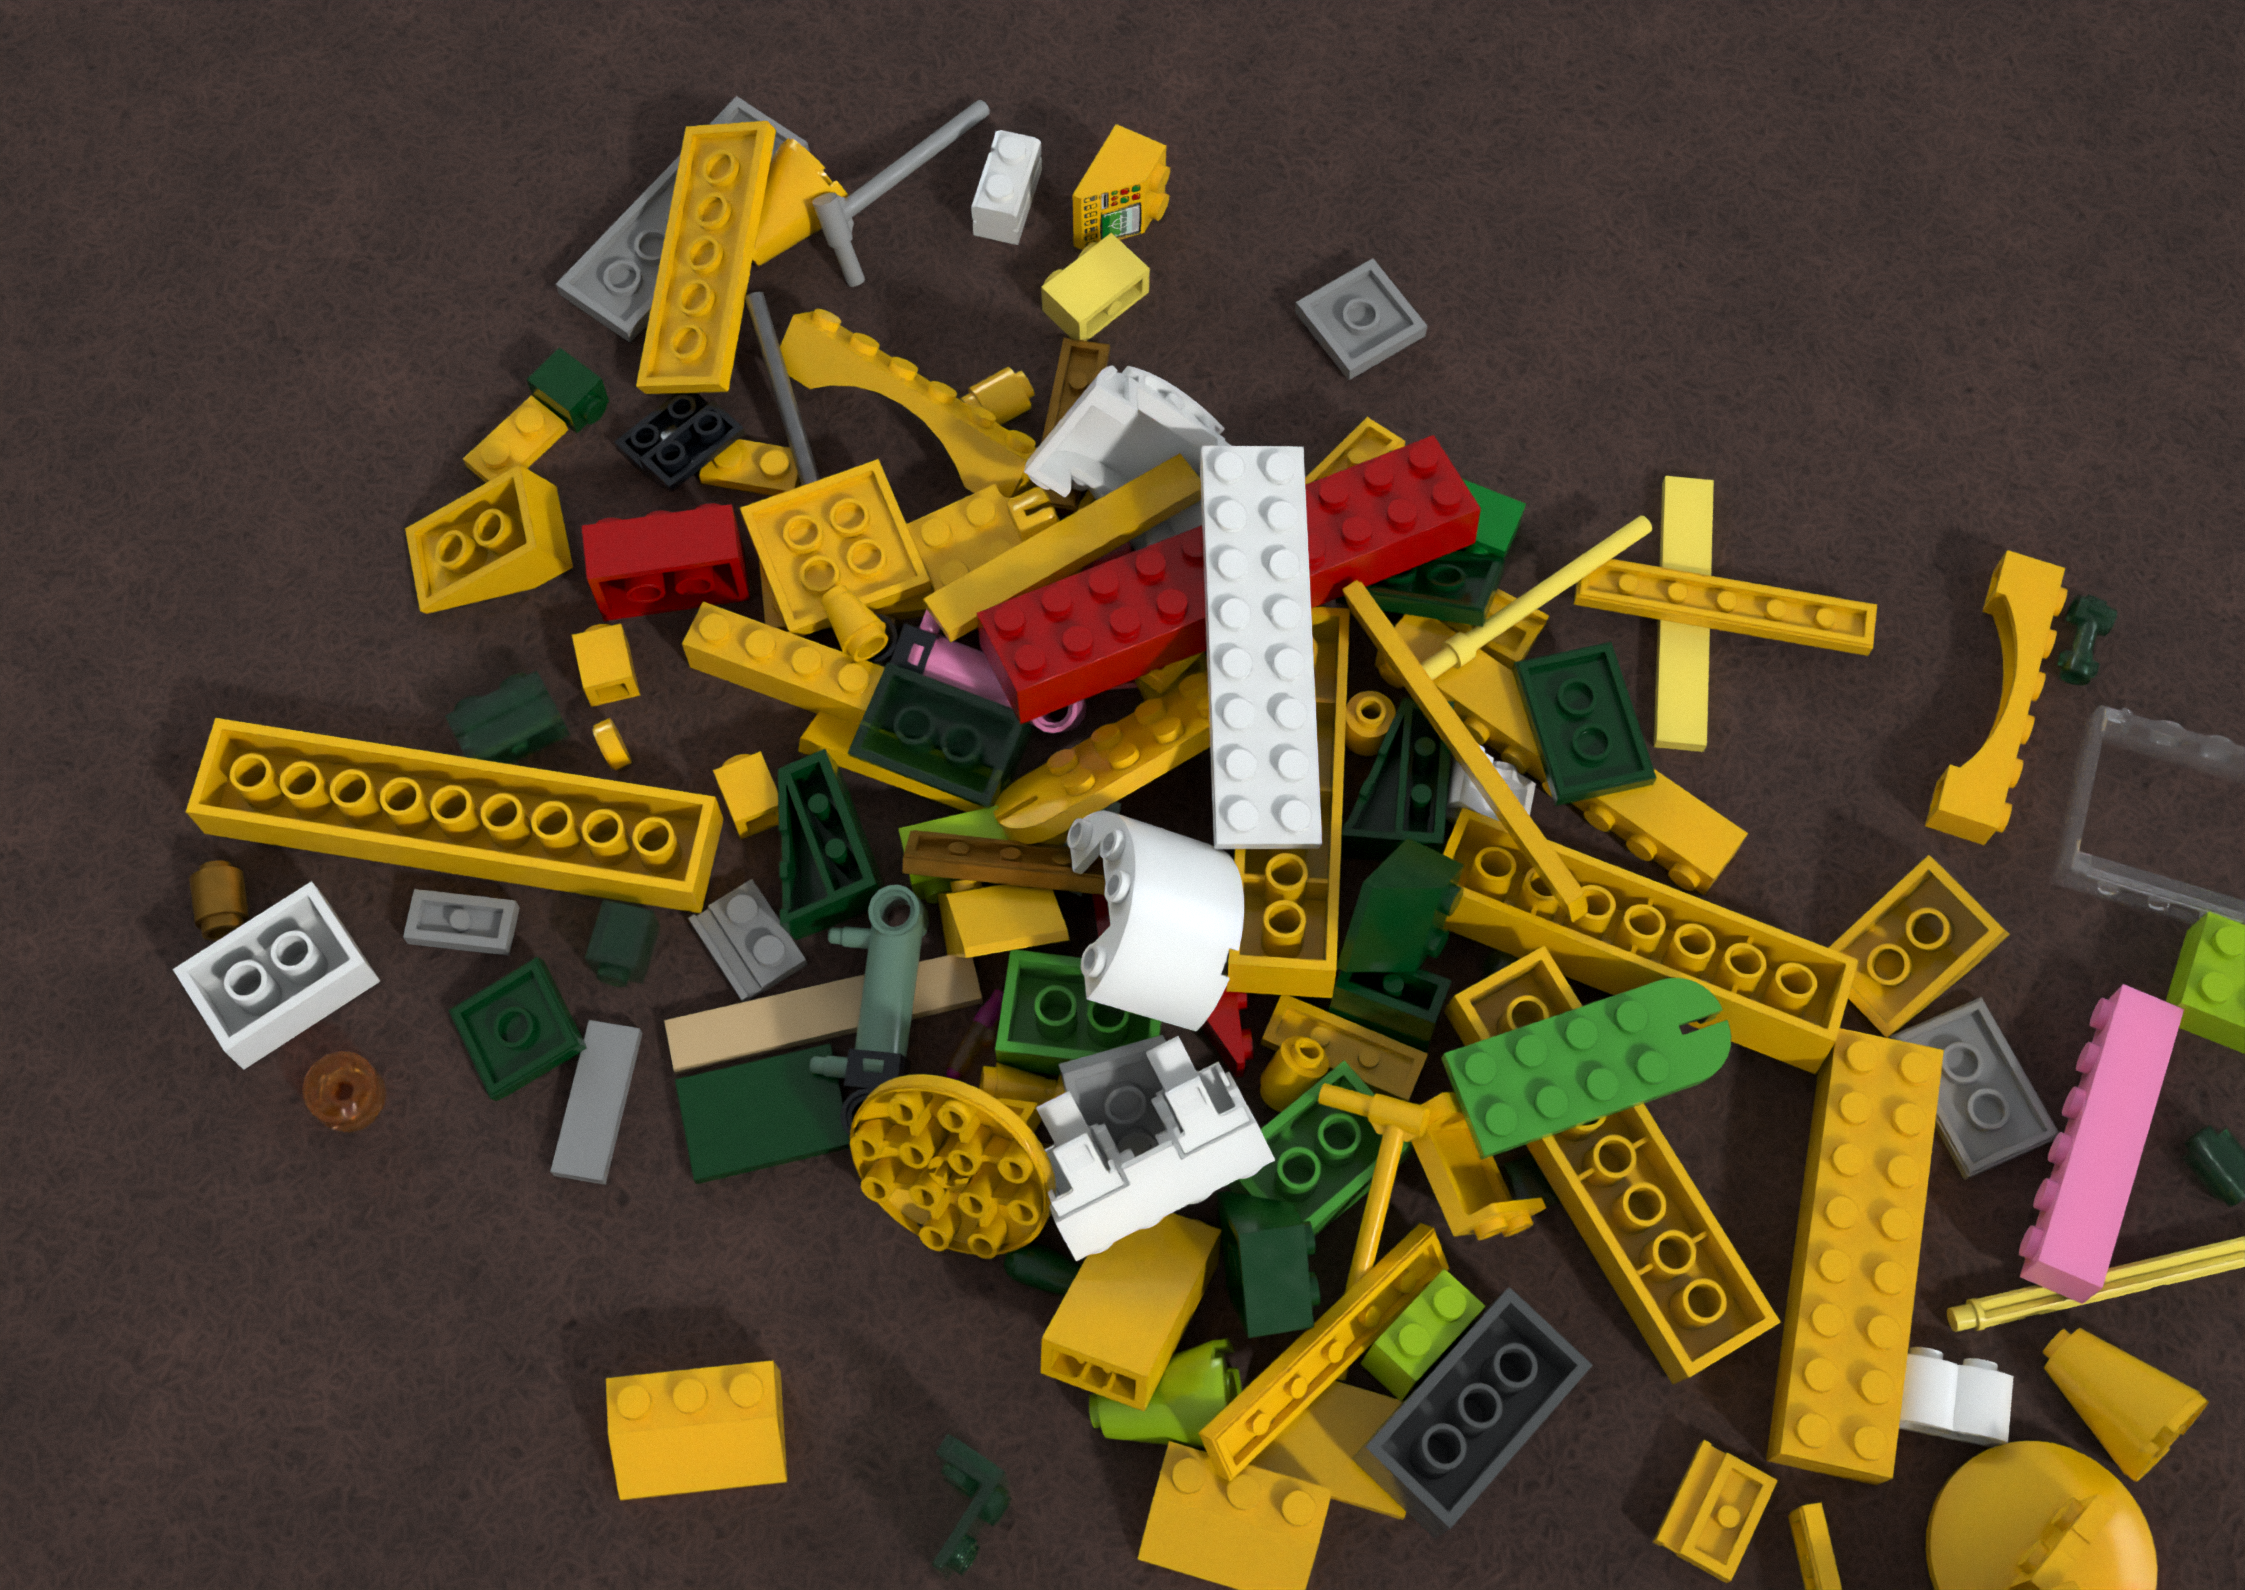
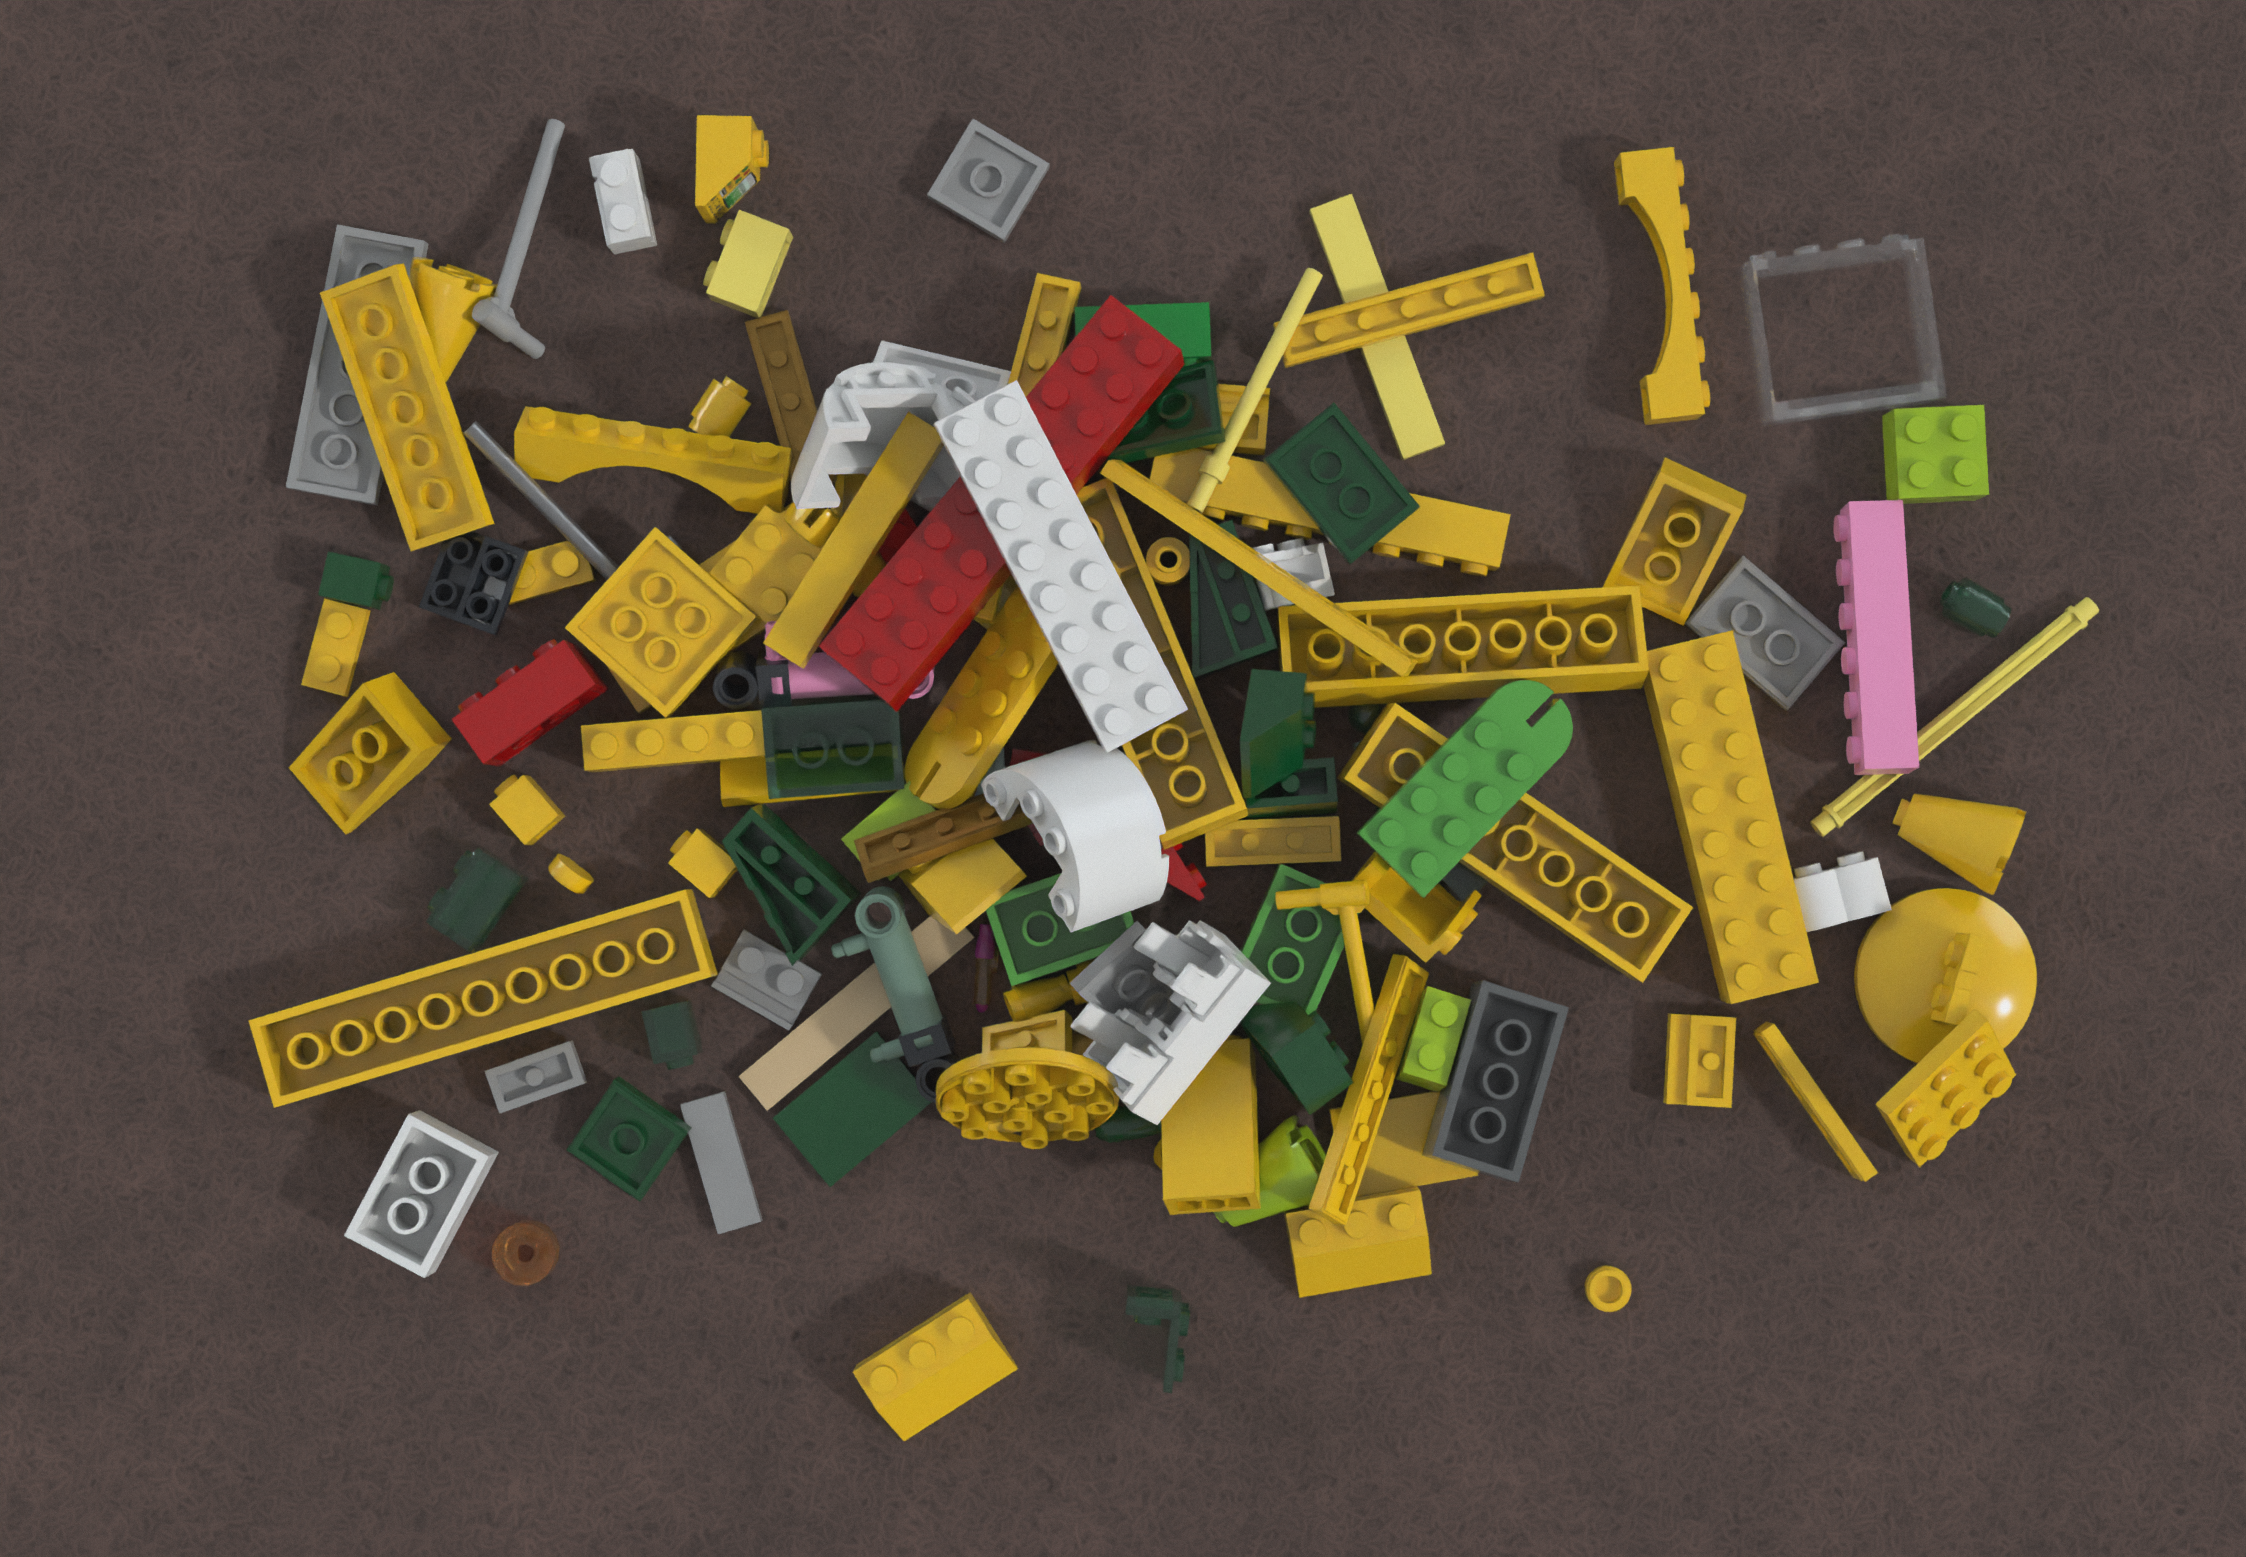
camera: 30 degrees left, 20 degrees up
(218, 899) = (336, 1154): pearl gold brick -> none
(854, 624) = (717, 690): yellow cone -> none
(1293, 1071) = (1245, 884): yellow brick -> none
(2092, 618) = (1709, 172): clear green bar -> none

